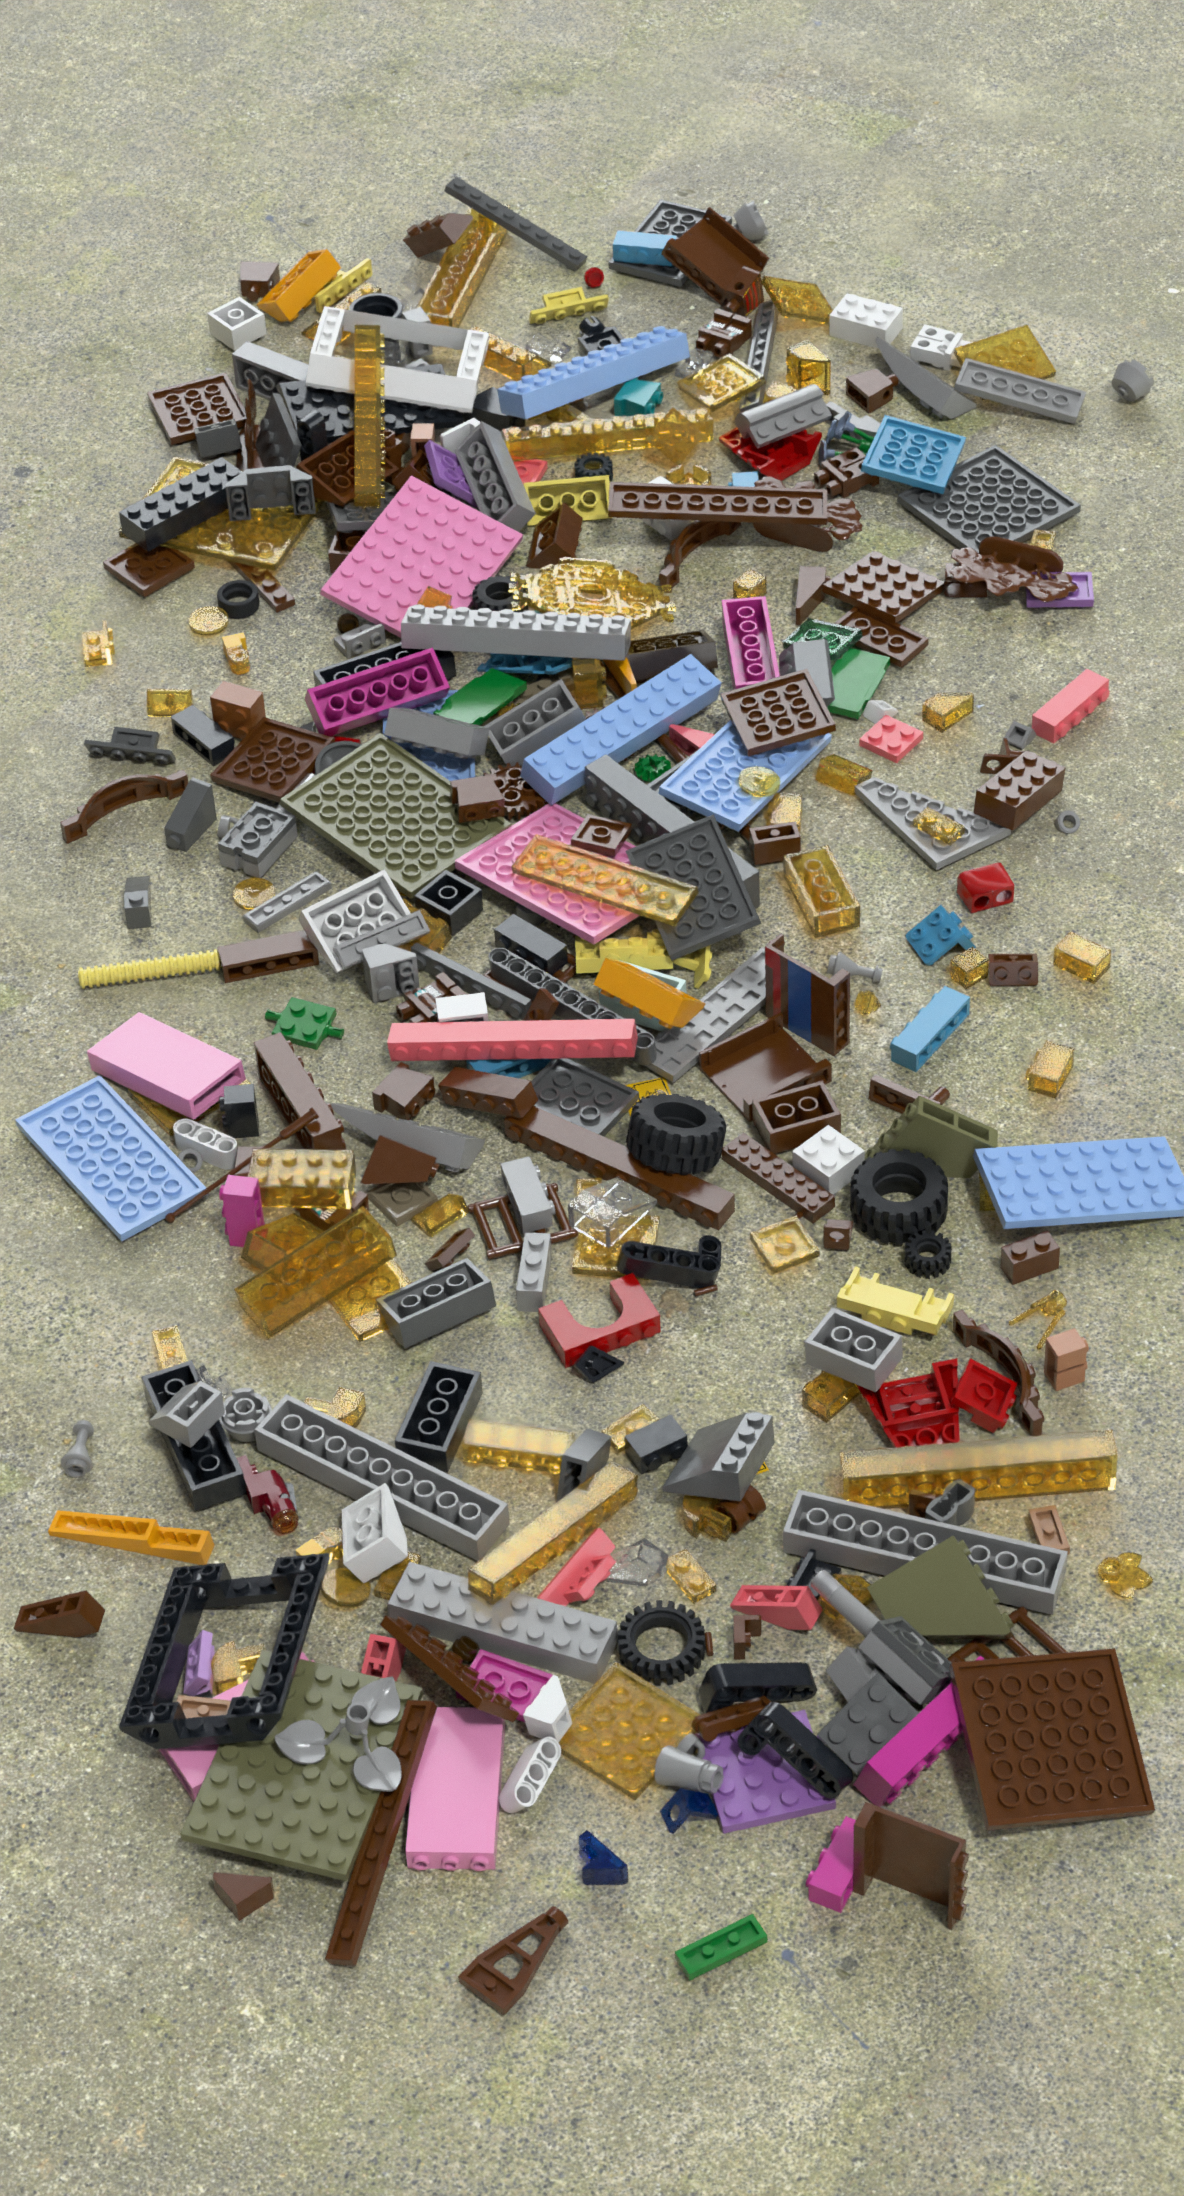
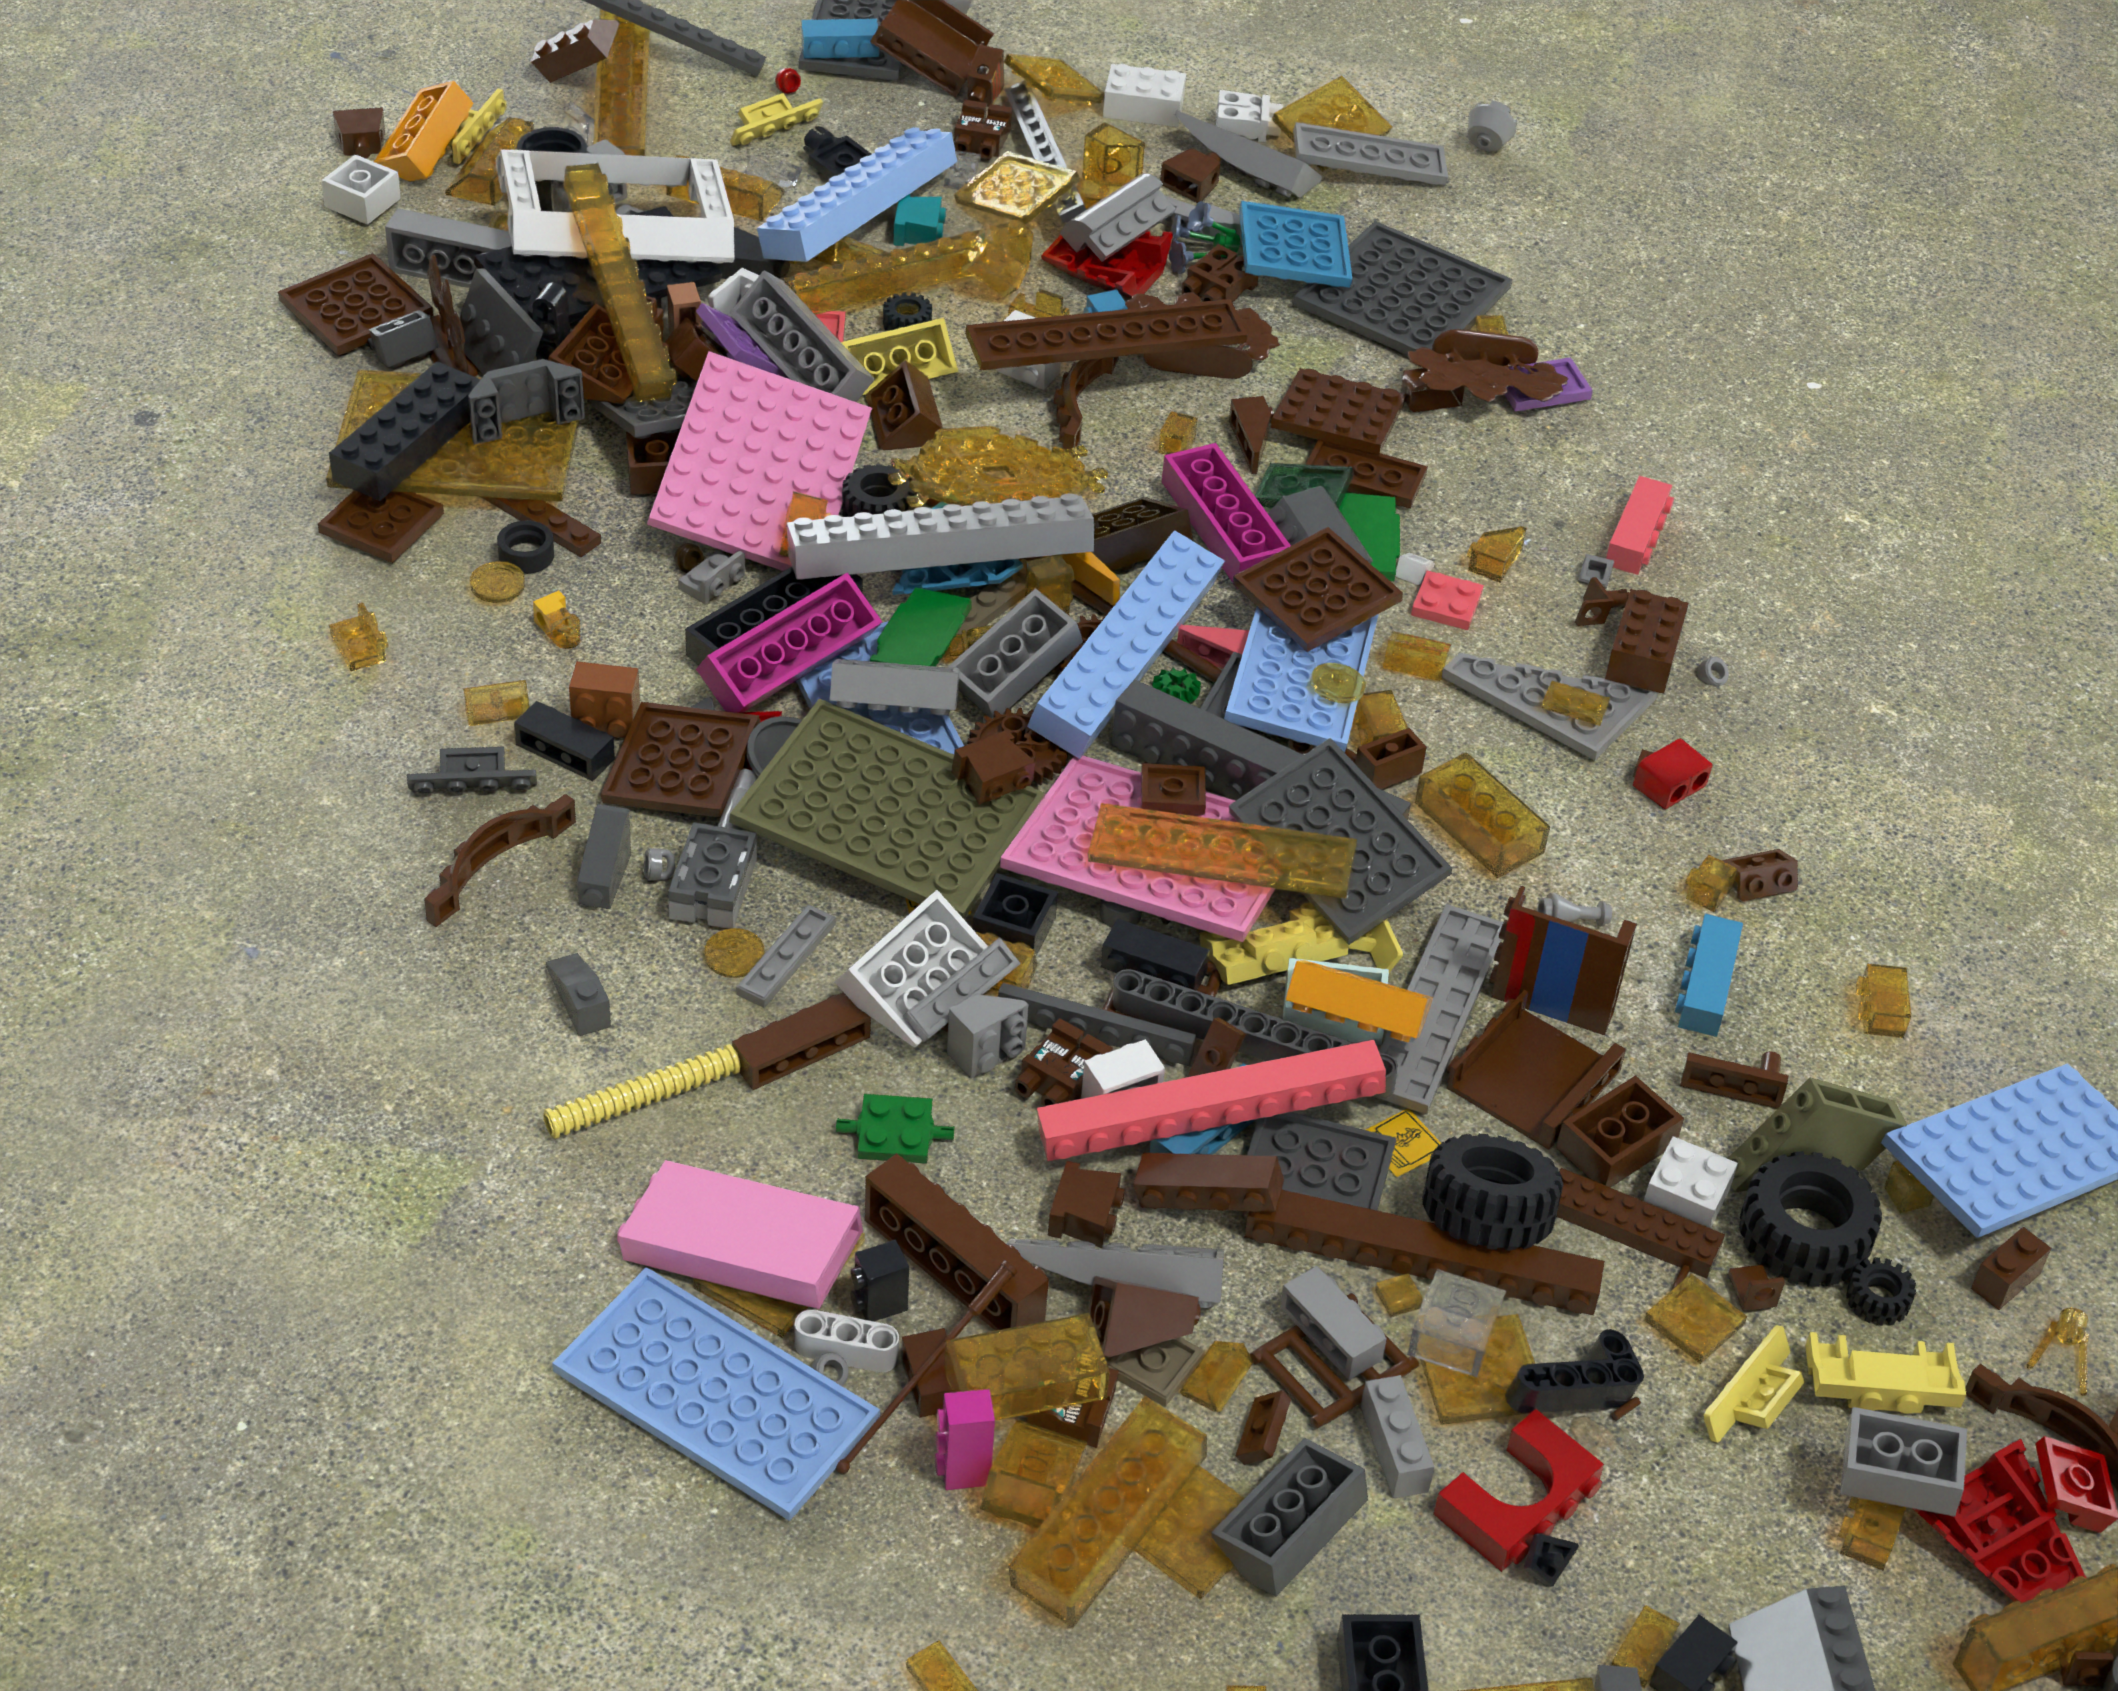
camera: 25 degrees left, 0 degrees up
(799, 1294) = (1757, 1389): none -> light yellow bracket
(938, 934) = (1651, 847): dark azure bracket -> none
(1082, 957) = (1836, 844): clear yellow brick -> none

